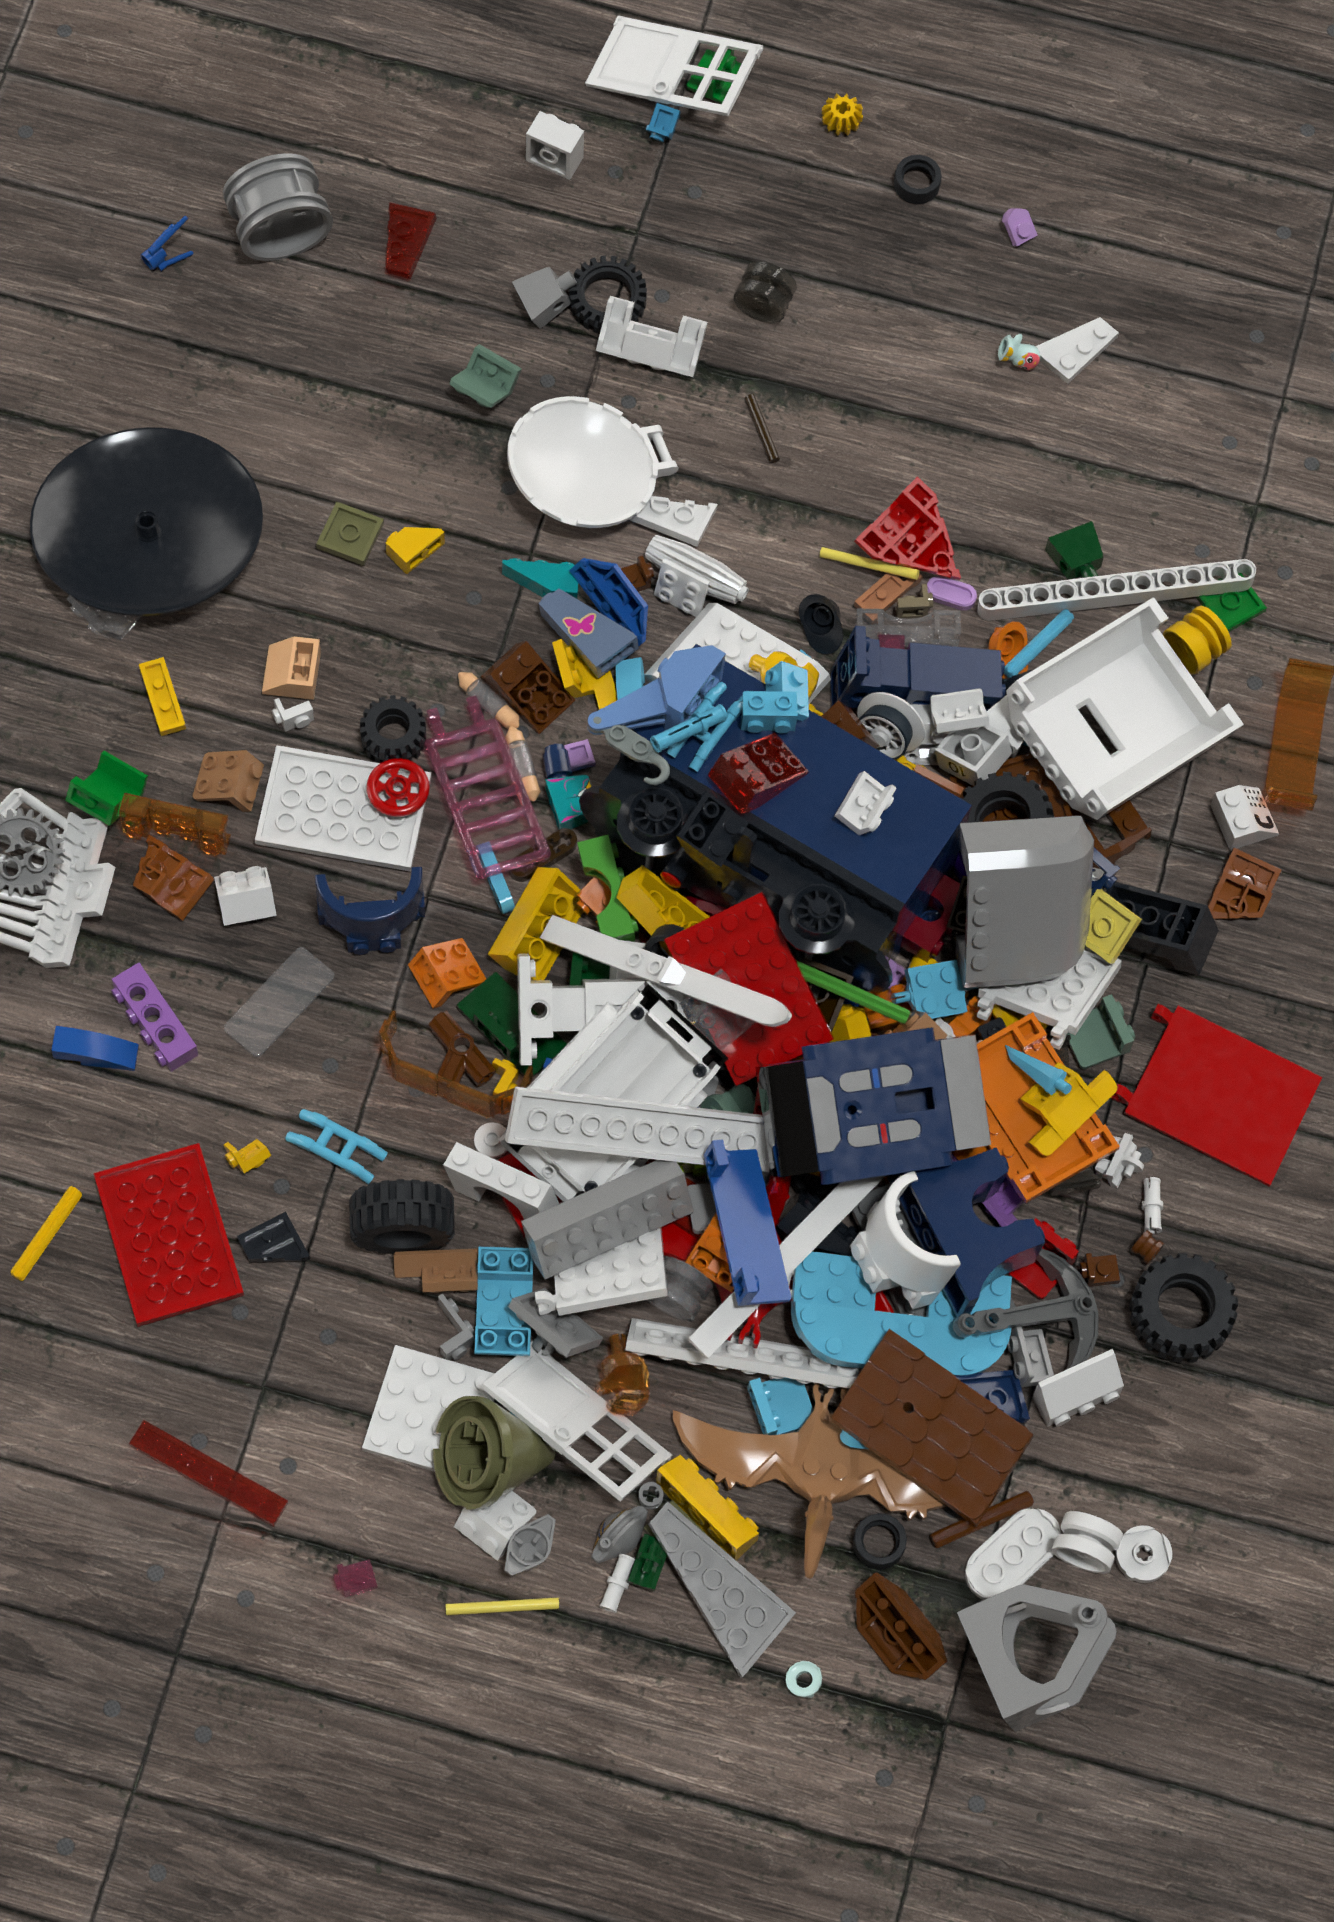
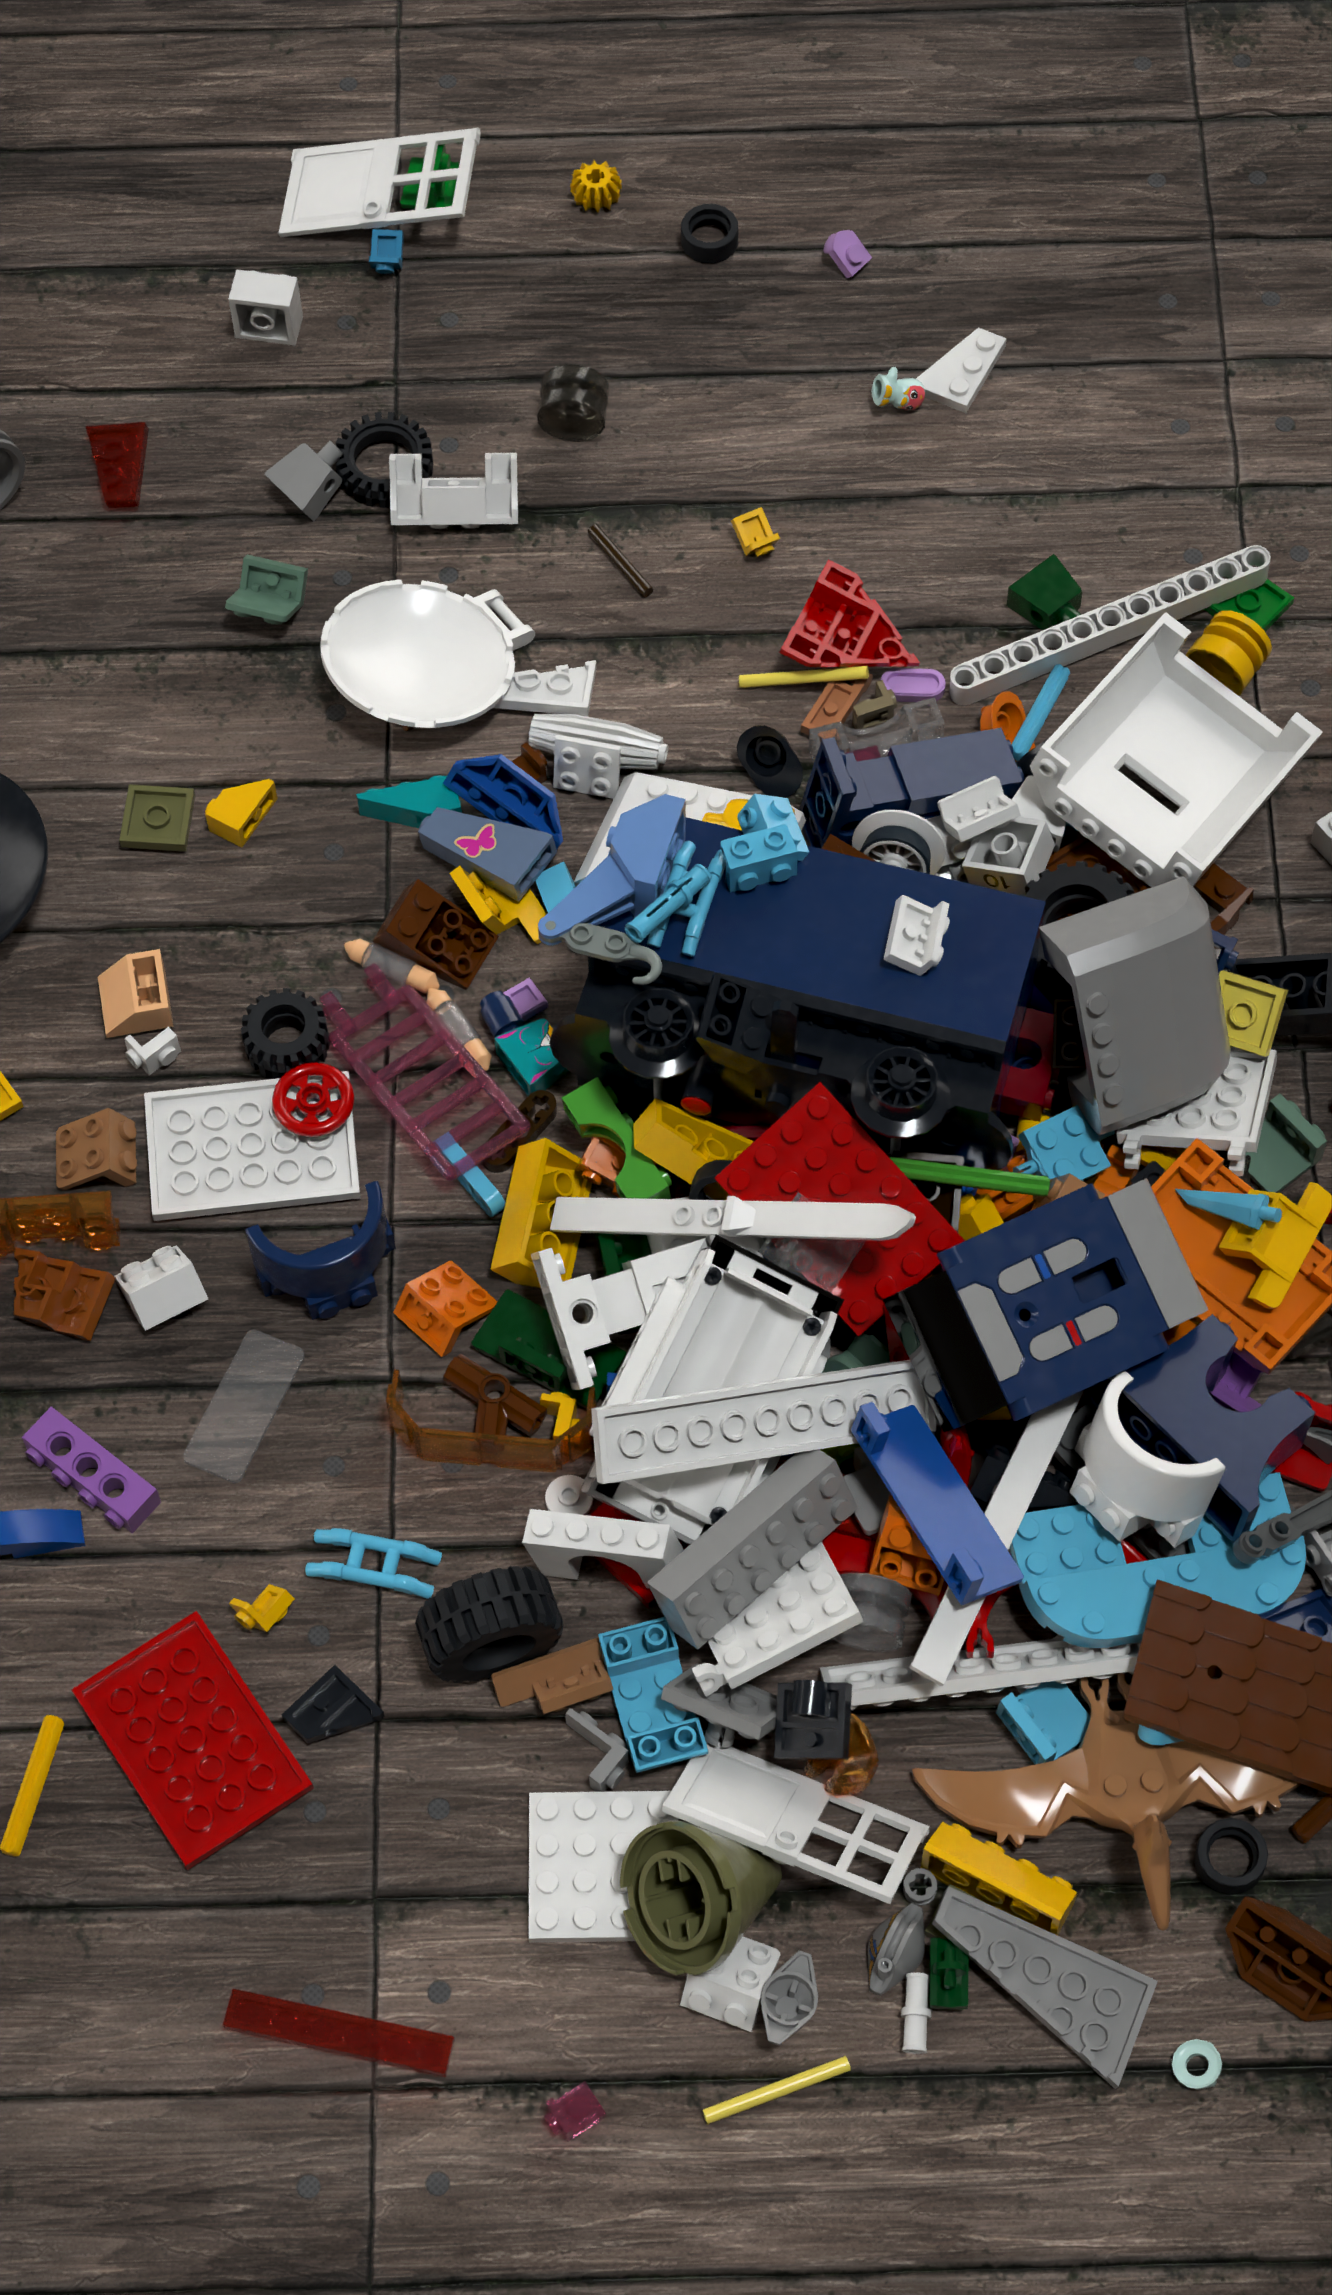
camera: 10 degrees left, 5 degrees down
(610, 1355) = (813, 1720): none -> black plate
(756, 772) = (768, 935): clear red slope -> none
(871, 436) = (754, 532): none -> yellow bracket

